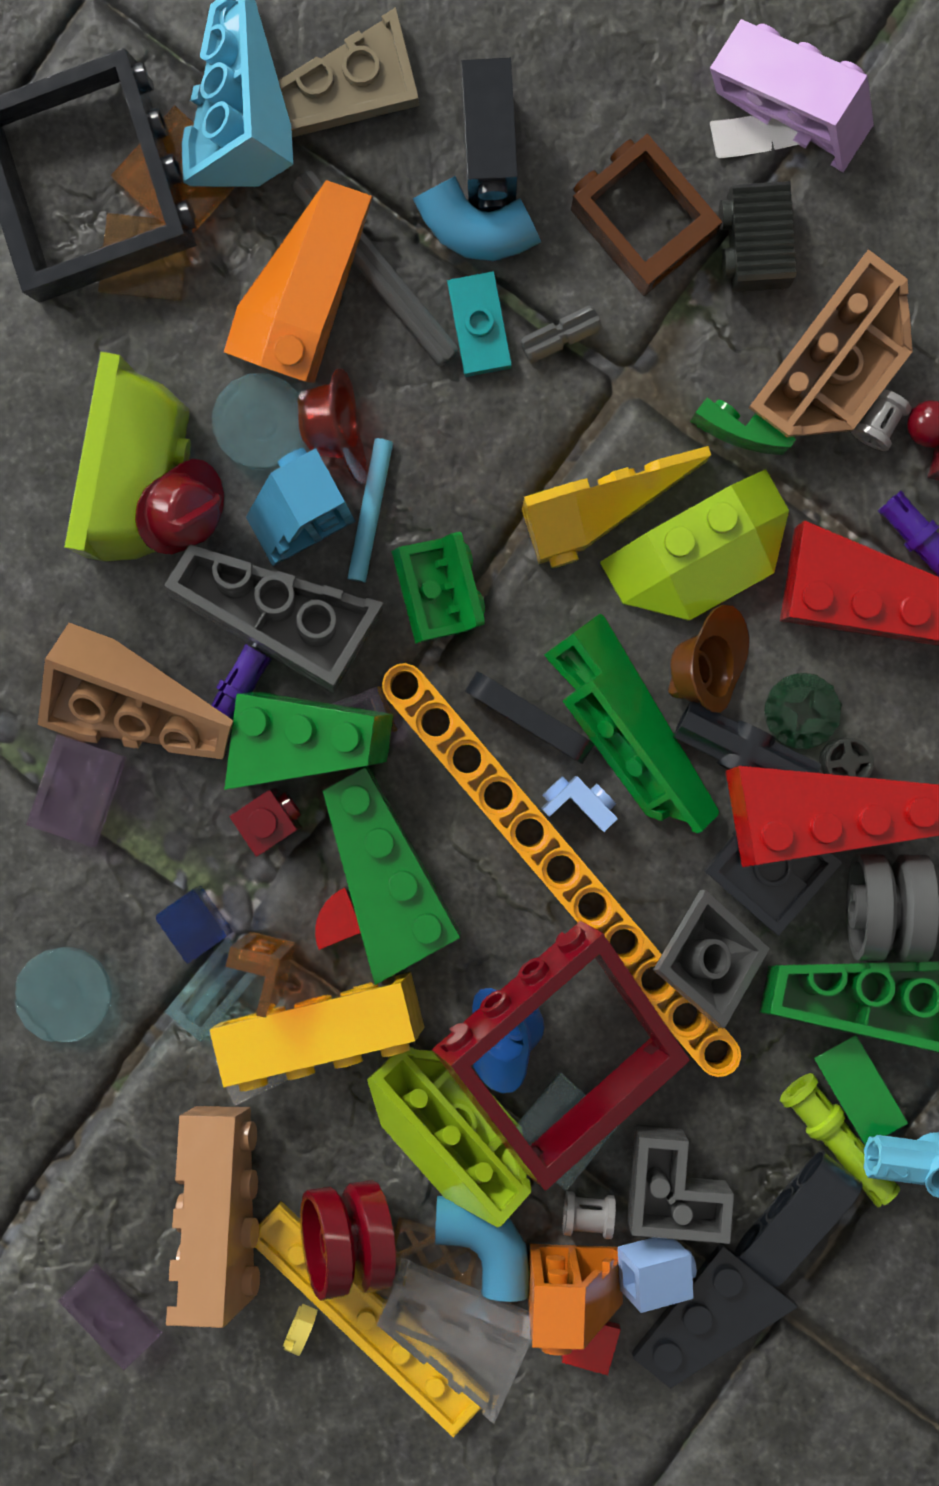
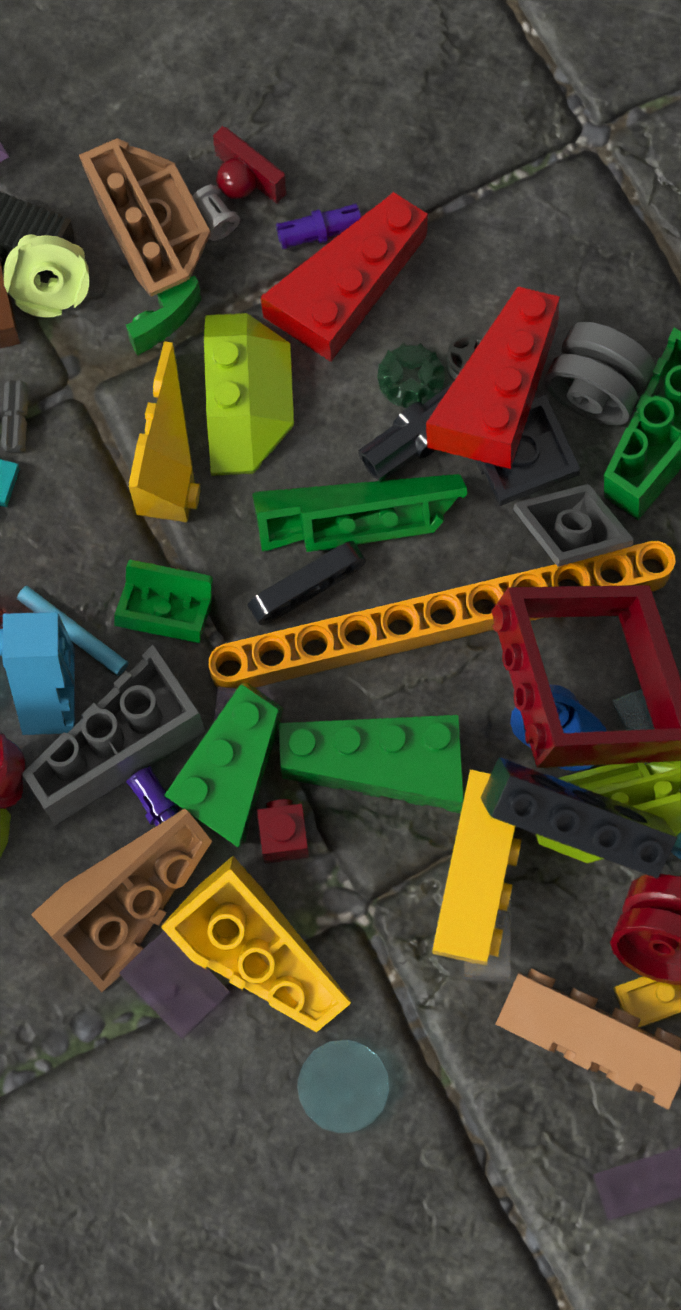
camera: 60 degrees left, 15 degrees down
(151, 836) = (249, 941): none -> yellow wedge
(187, 1021) = (418, 988): clear light blue tile -> none
(193, 924) = (339, 936): clear blue panel -> none
(267, 958) = (403, 870): clear orange panel -> none
(336, 920) = (395, 820): red tile -> none
(399, 1113) = (578, 817): none -> black brick
(592, 801) = (399, 568): light blue bracket -> none
(712, 661) = (334, 423): reddish brown piece -> none
(737, 271) = (41, 254): none -> yellowish green plate

